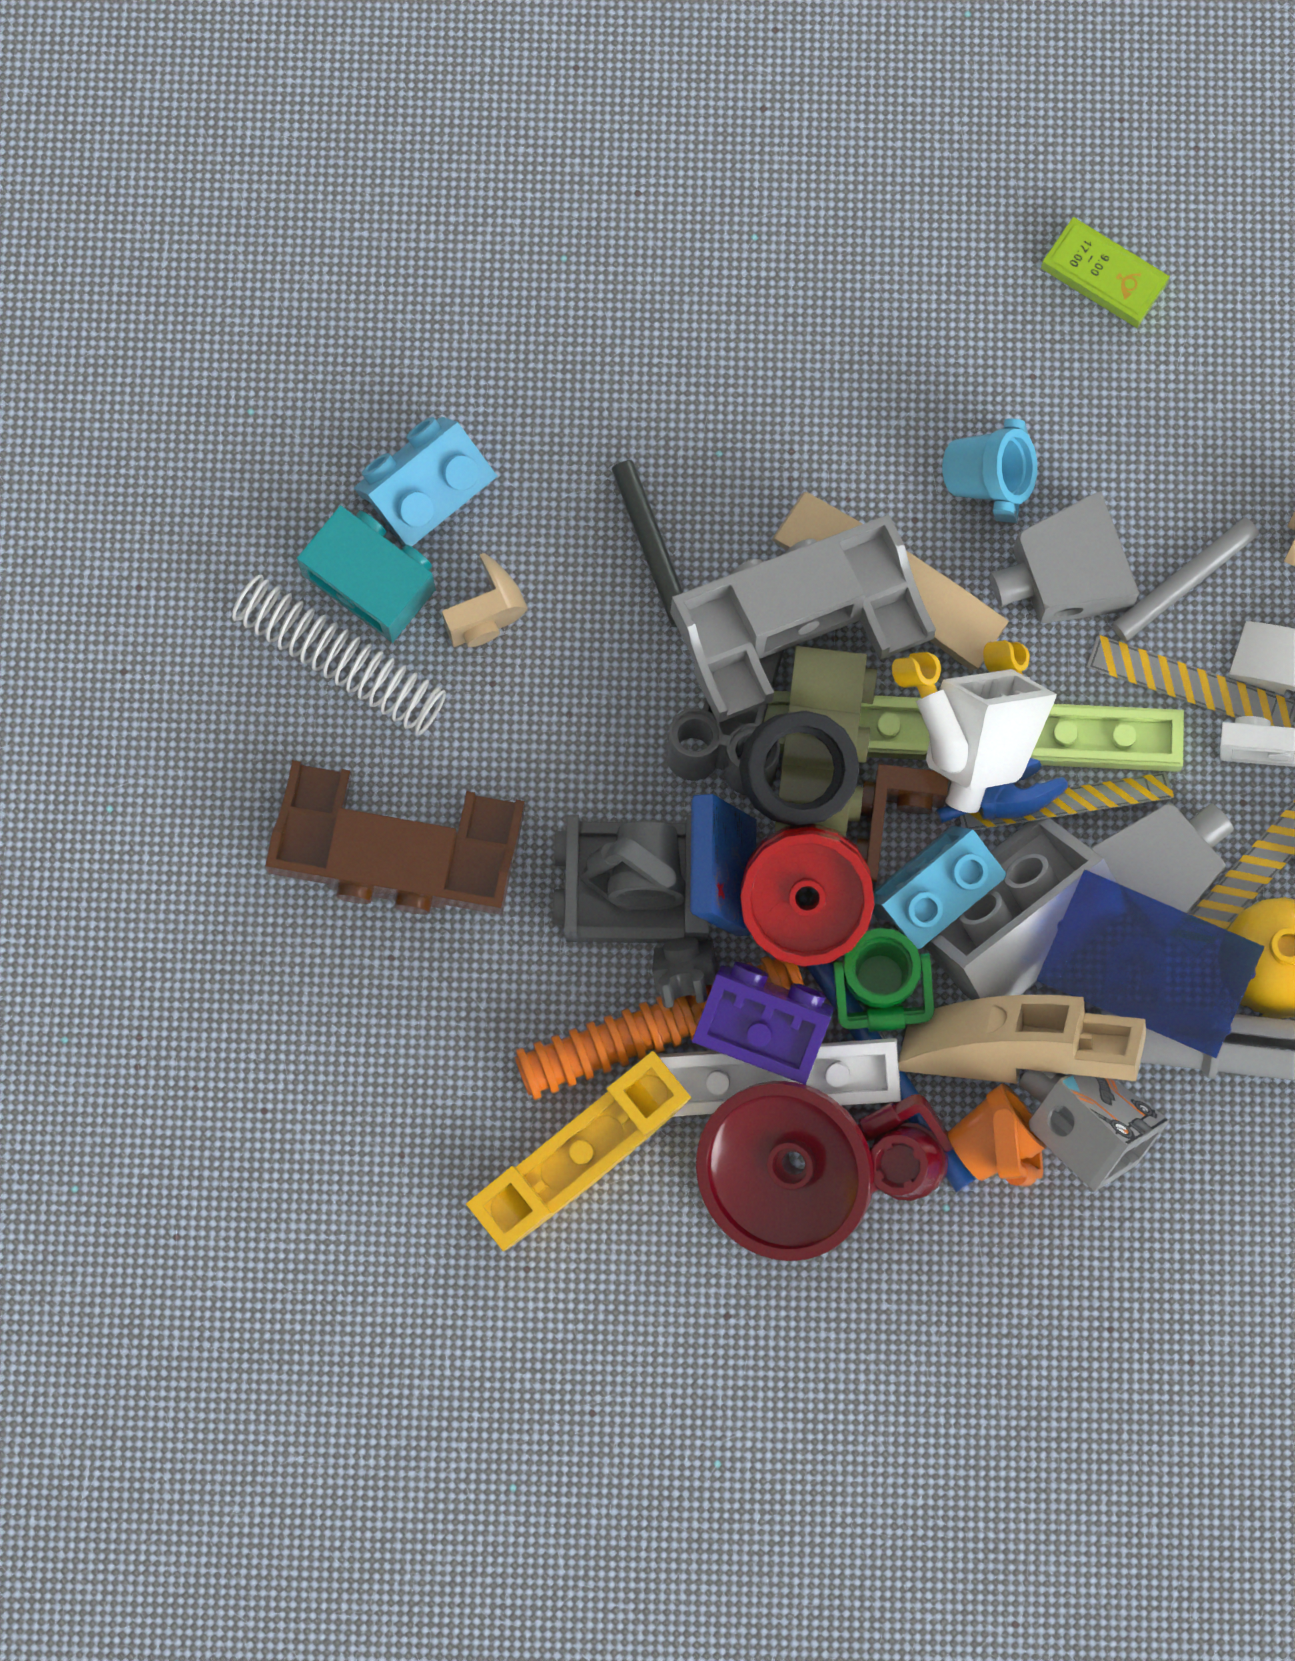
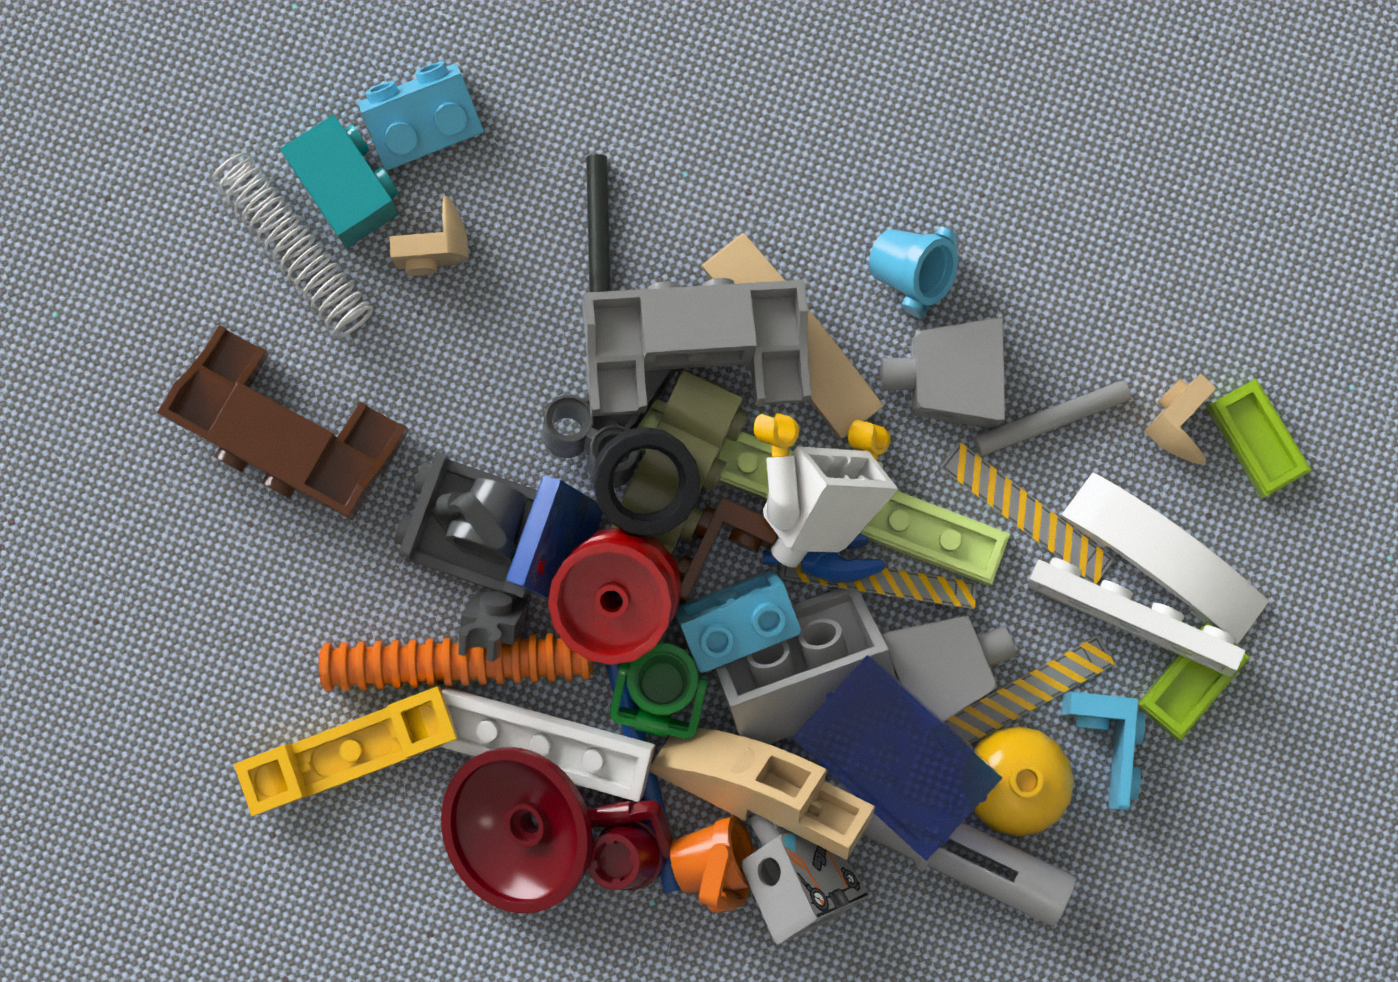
camera: 15 degrees right, 5 degrees up
(764, 1022) = (540, 694): dark purple bracket -> none
(1105, 272) = (1076, 122): lime tile -> none

